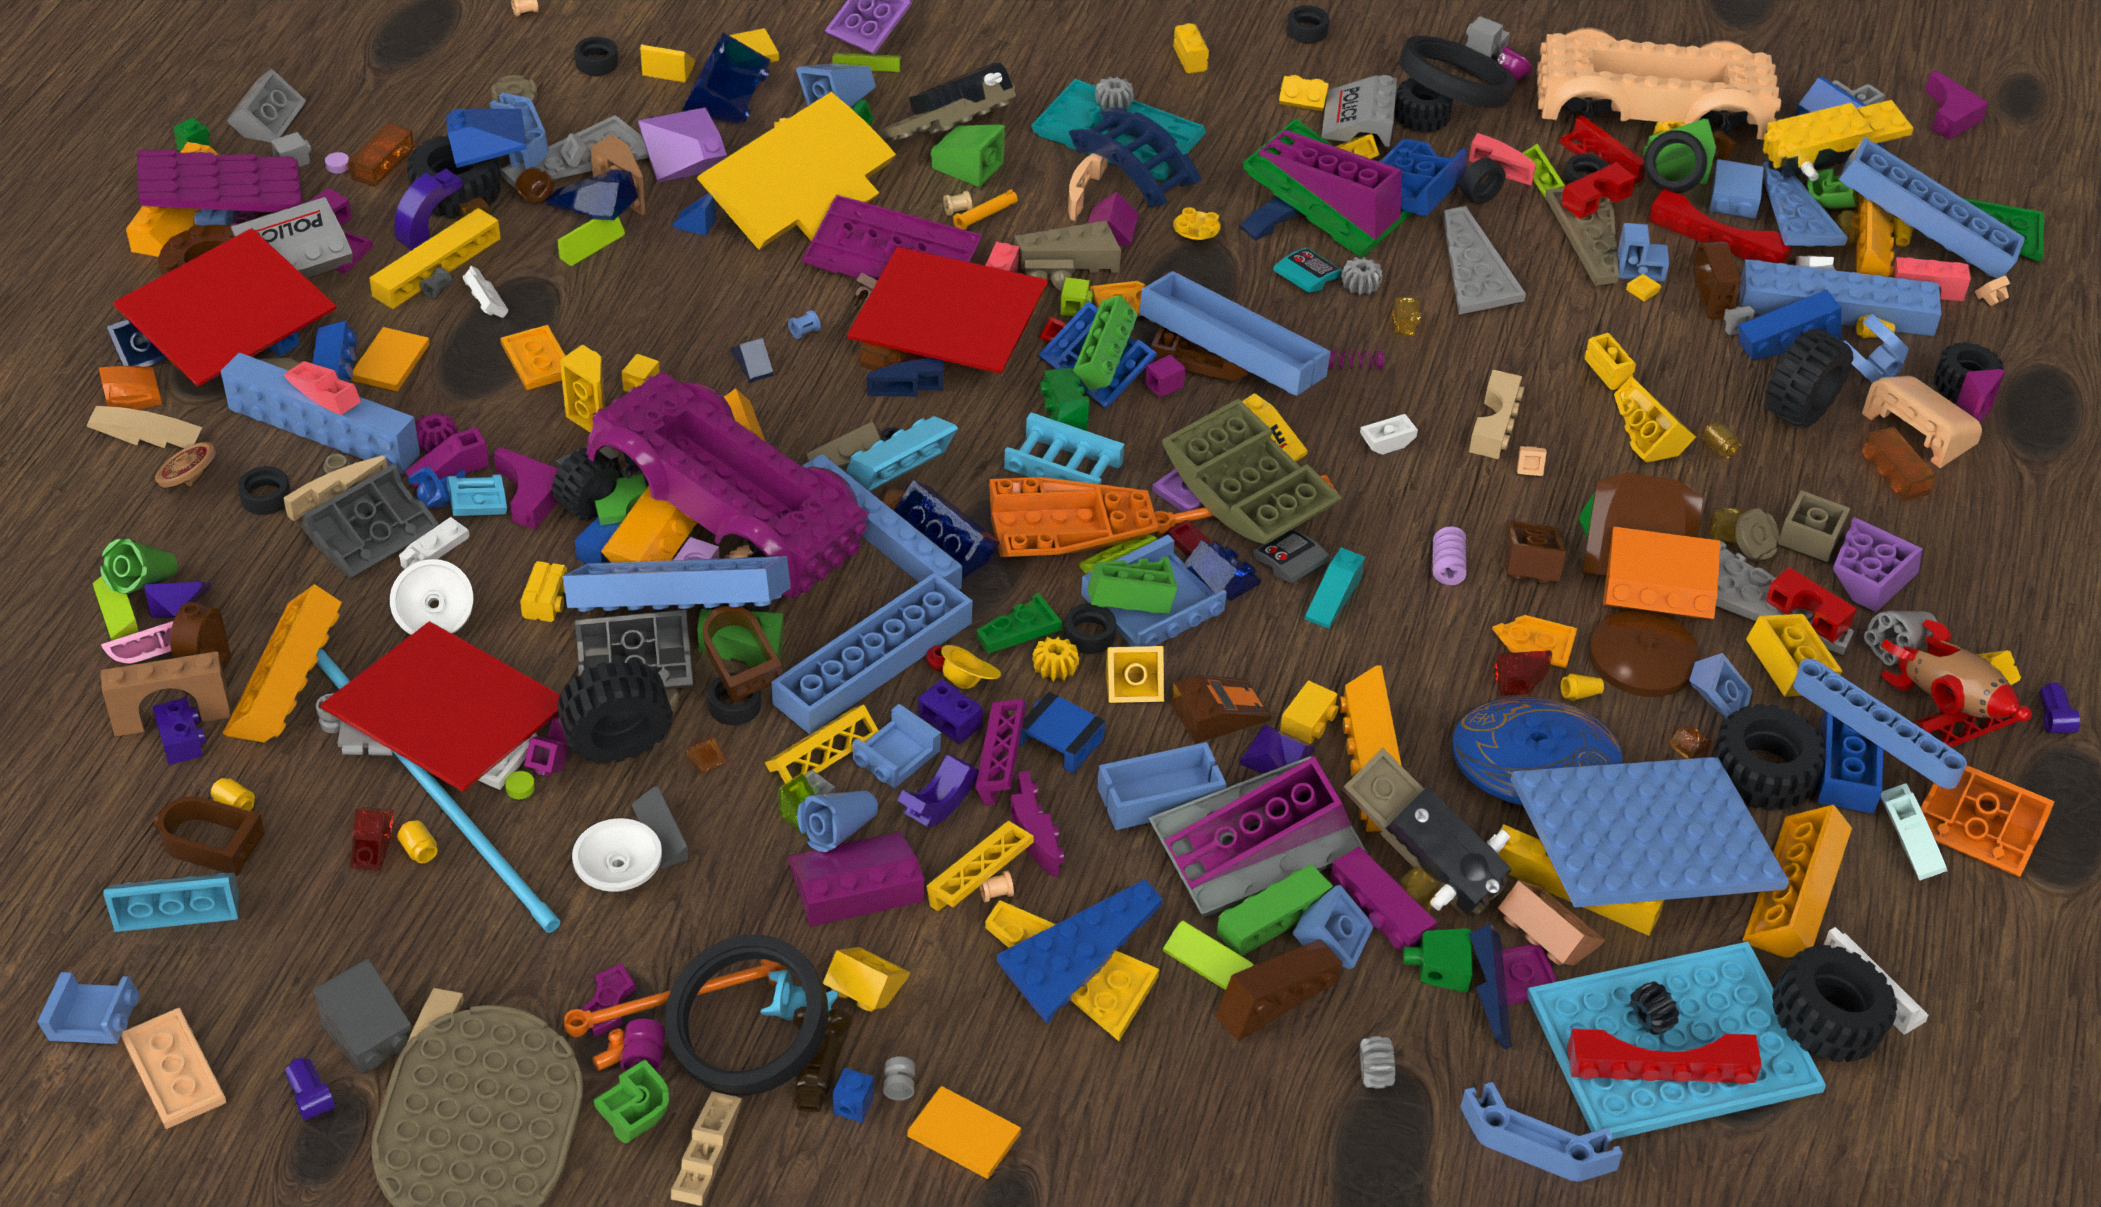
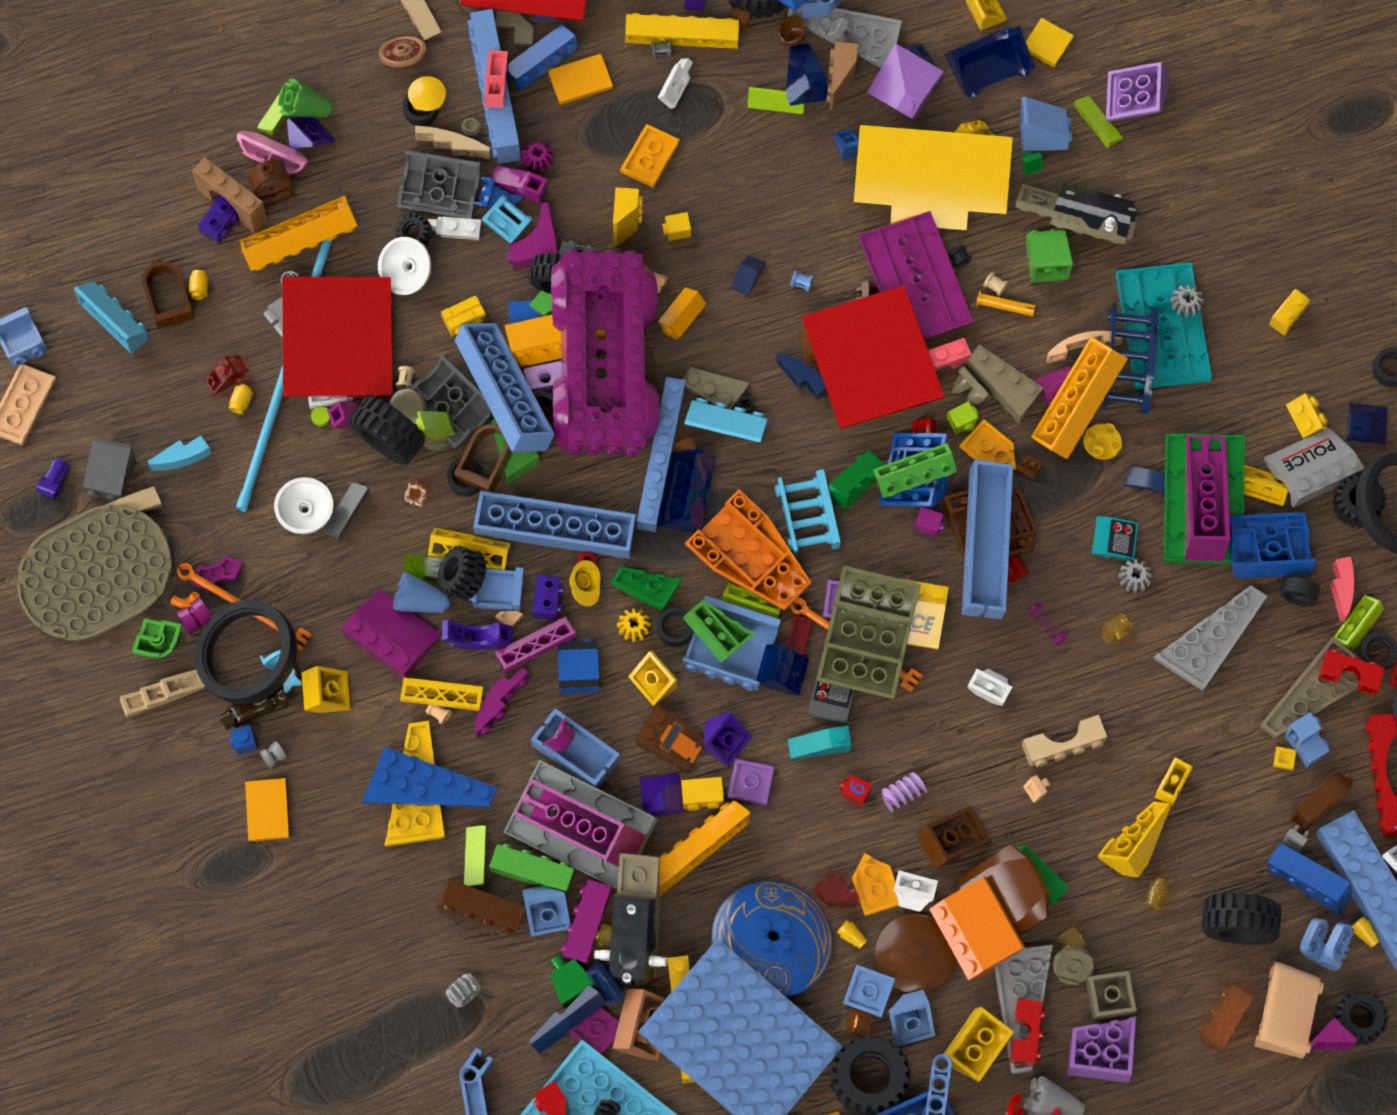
camera: 55 degrees right, 25 degrees up
(260, 467) = (427, 93): none -> yellow dish
(390, 562) = (411, 220): none -> black tyre
(422, 940) = (180, 455): none -> medium azure slope
(556, 678) = (408, 372): none -> tan bush
(660, 661) = (435, 424): none -> lime slope
(871, 748) = (462, 572): none -> black tyre
(903, 206) = (959, 256): none -> black wheel
(935, 761) = (509, 617): none -> light nougat tile
(1140, 773) = (562, 737): none -> magenta helmet
(1144, 199) = (1079, 398): none -> light orange slope
(1259, 659) = (725, 737): none -> dark purple slope
(1328, 668) = (751, 782): none -> medium lavender tile
(1346, 67) = (1366, 423): none -> clear blue slope
(1415, 591) = (855, 790): none -> red brick
(1477, 913) = (605, 983): none -> dark blue panel
(1572, 607) = (914, 891): none -> white slope
(1661, 707) = (869, 991): none -> medium blue plate

